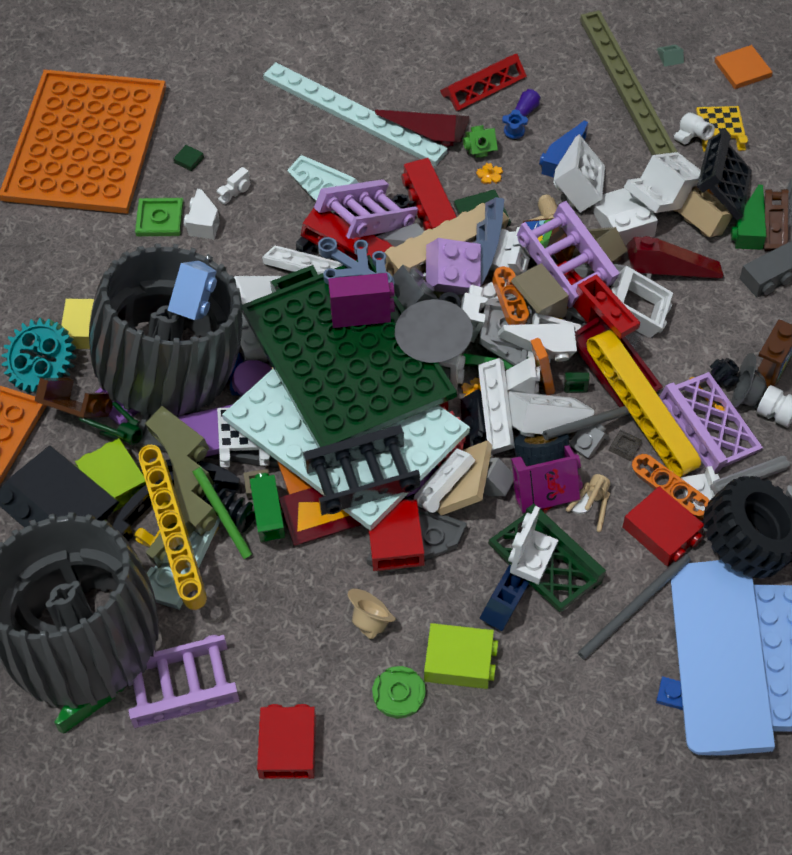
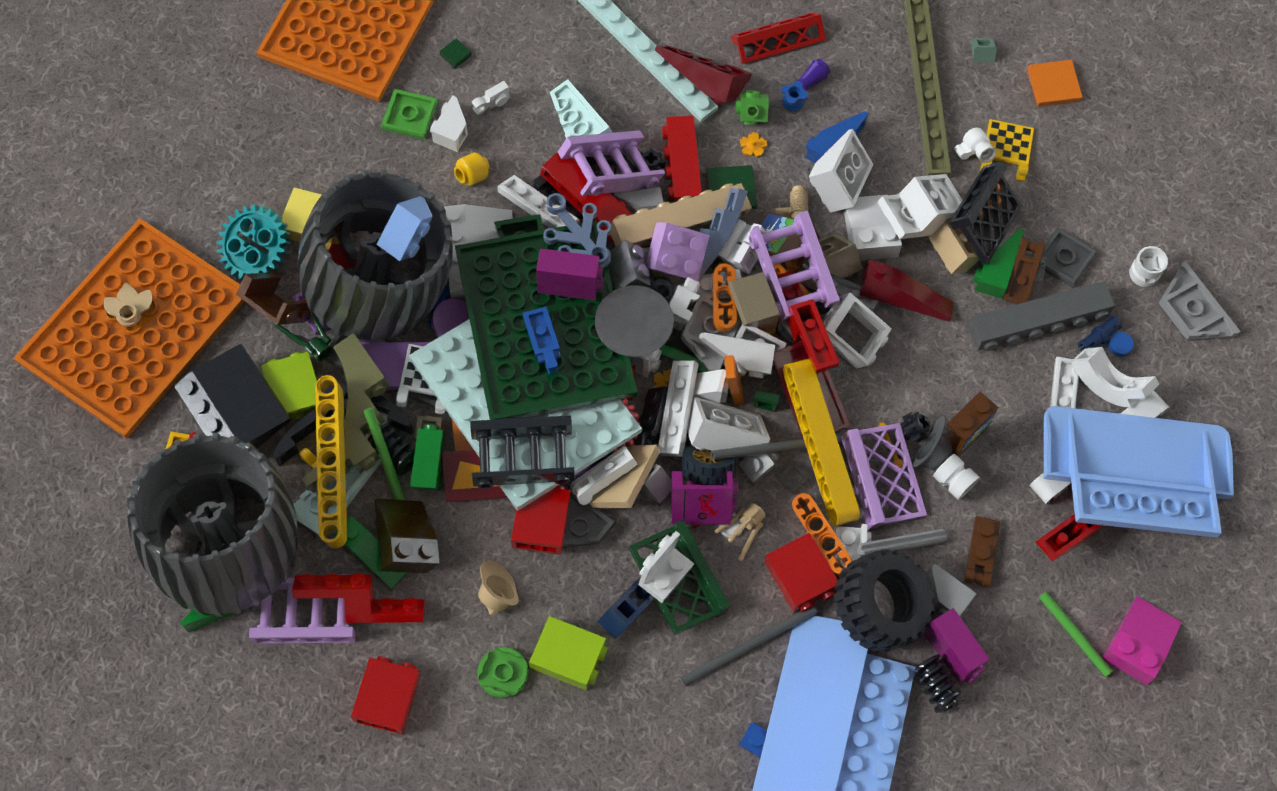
camera: 10 degrees right, 10 degrees up
(233, 248) = (471, 169): none -> yellow head
(233, 653) = (359, 598): none -> red bracket
(234, 611) = (365, 549): none -> green slope
(264, 586) = (405, 537): none -> dark brown slope
(351, 363) = (542, 338): none -> blue hinge

